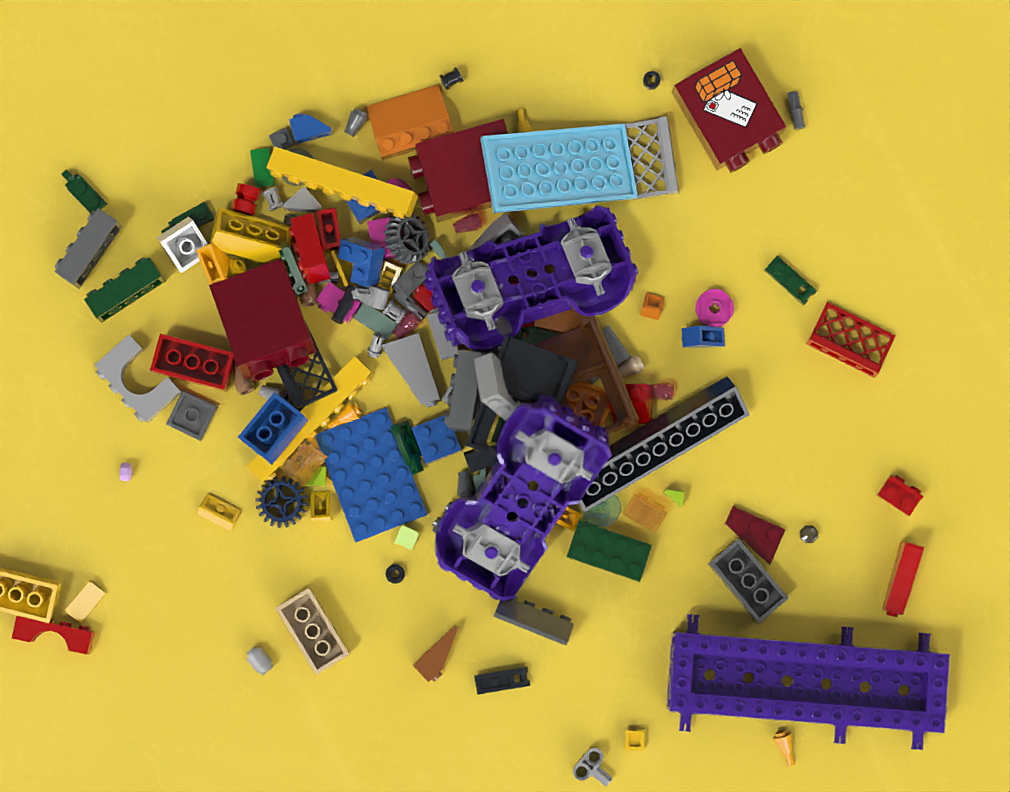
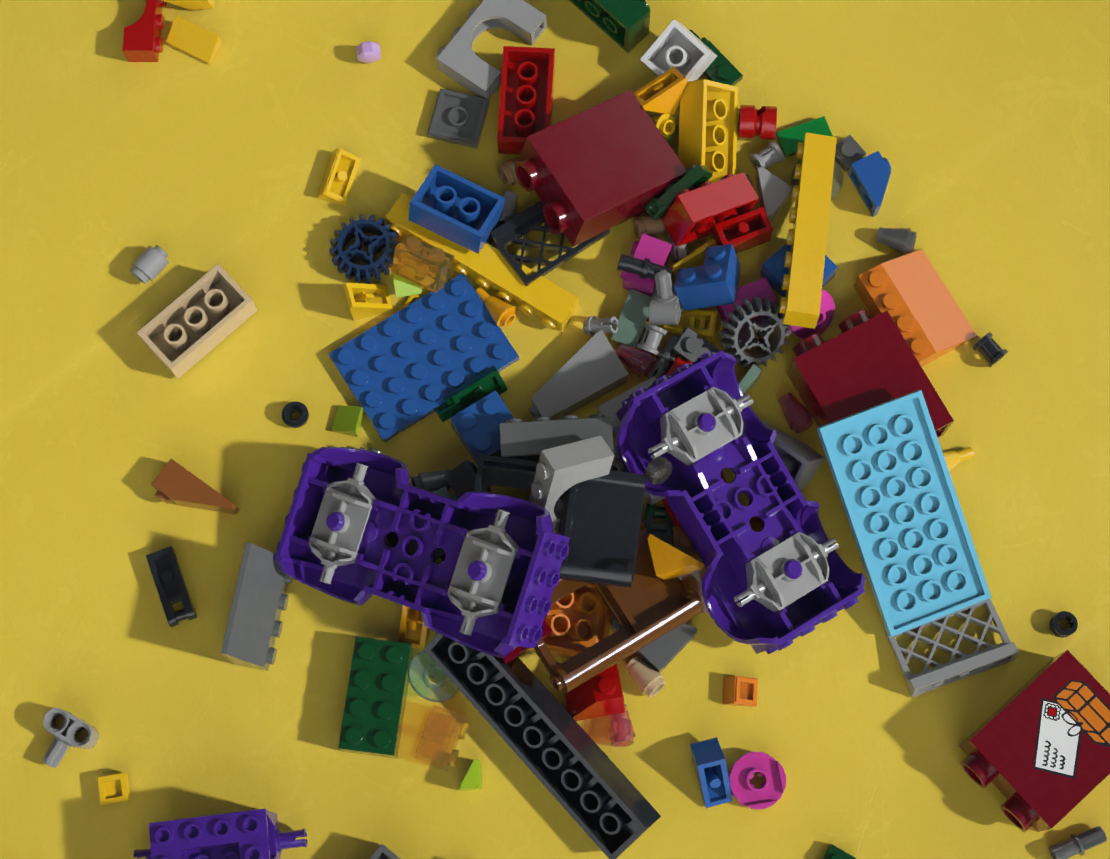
camera: 85 degrees right, 10 degrees down
(559, 332) = (670, 561): none -> light orange slope

